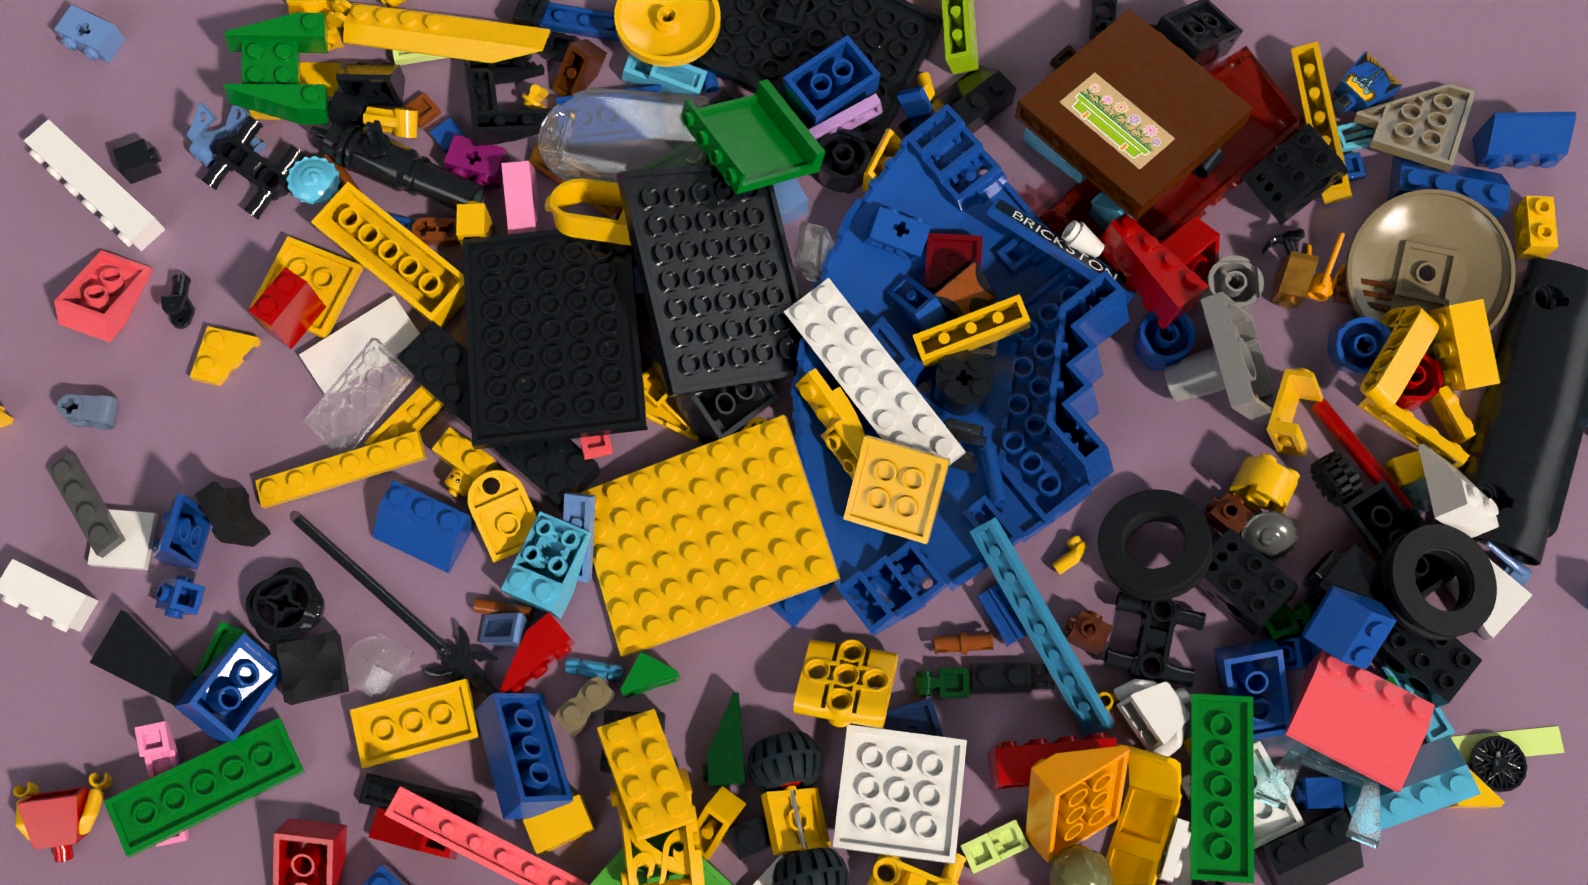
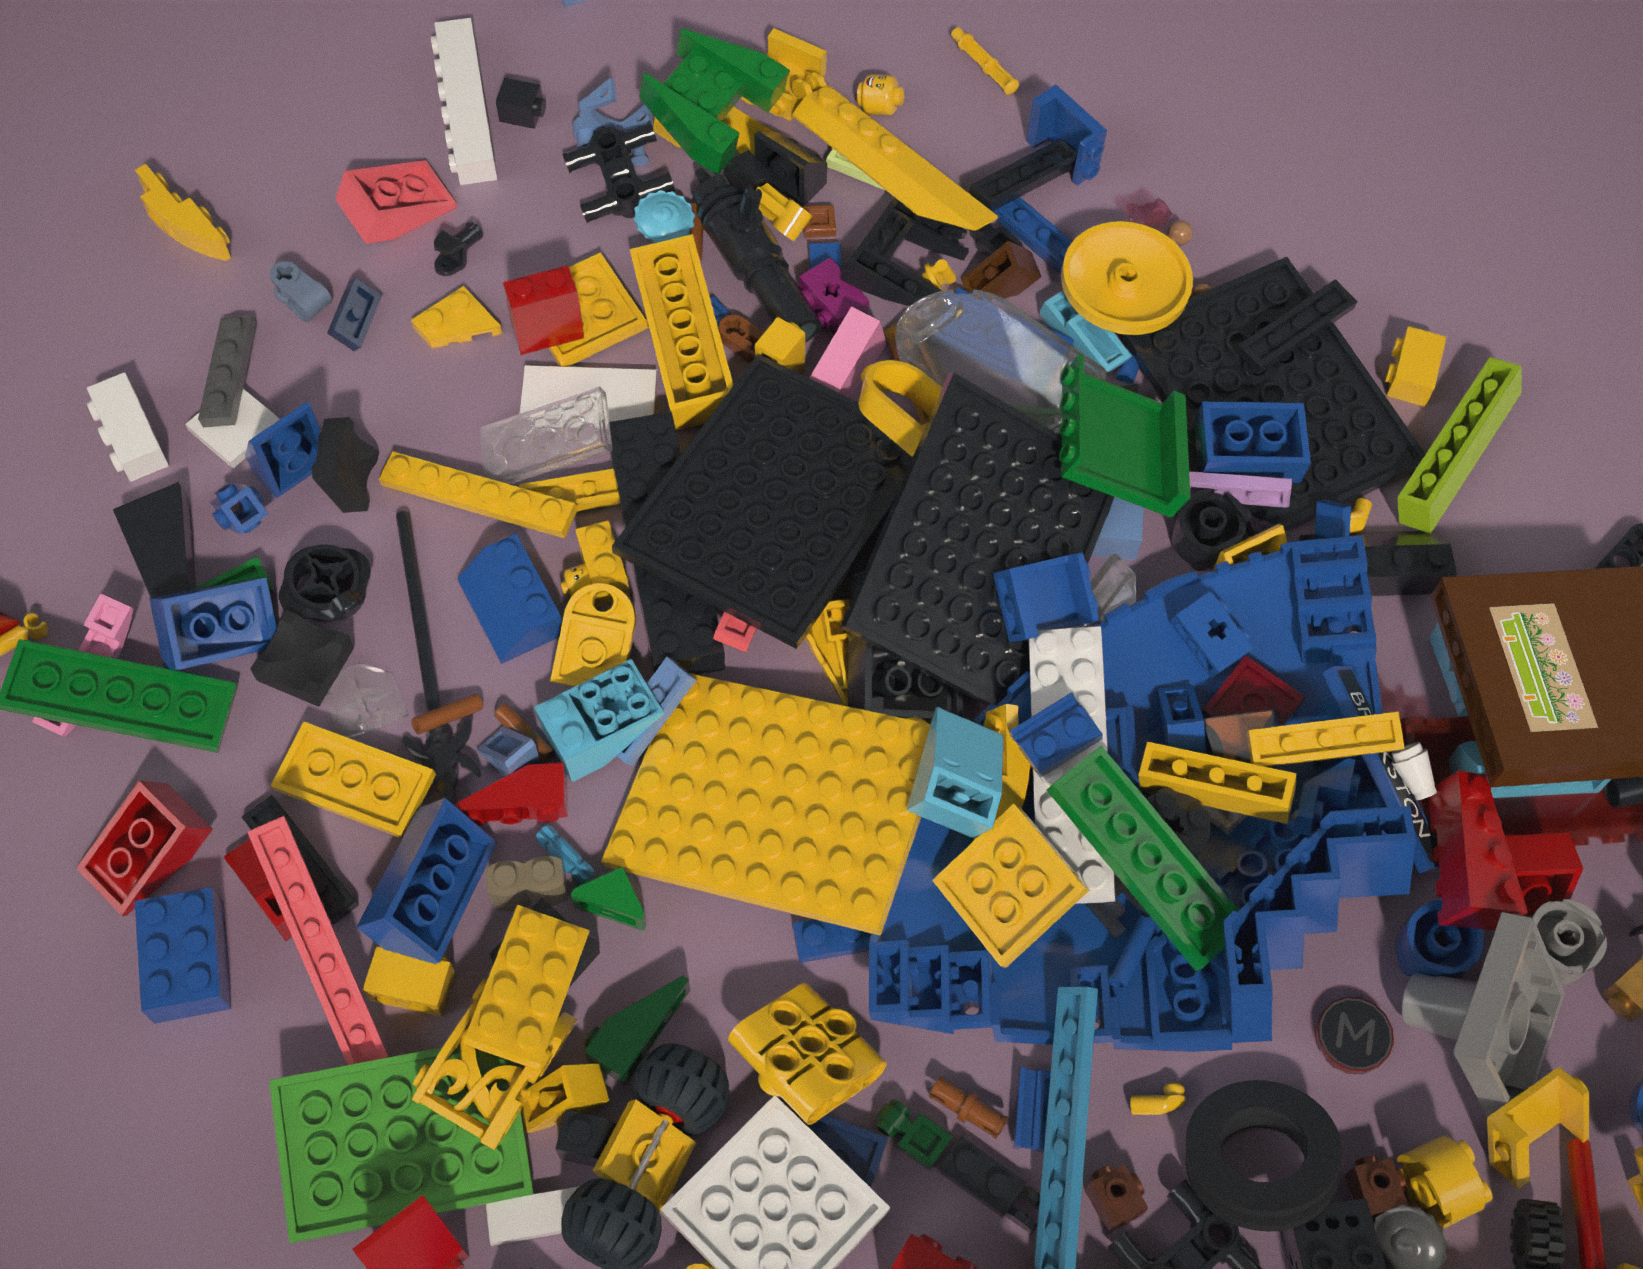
camera: 35 degrees right, 10 degrees down
(145, 400) = (354, 314): none -> dark blue plate
(442, 634) = (447, 713): none -> dark orange piece
(778, 281) = (1046, 596): none -> blue panel
(816, 441) = (959, 775): none -> medium azure slope
(854, 371) = (1056, 735): none -> blue plate
(966, 411) = (1145, 855): none -> green plate
(1020, 259) = (1325, 739): none -> yellow plate
(1040, 285) = (1328, 788): none -> blue slope
(1152, 430) = (1354, 1035): none -> black tile

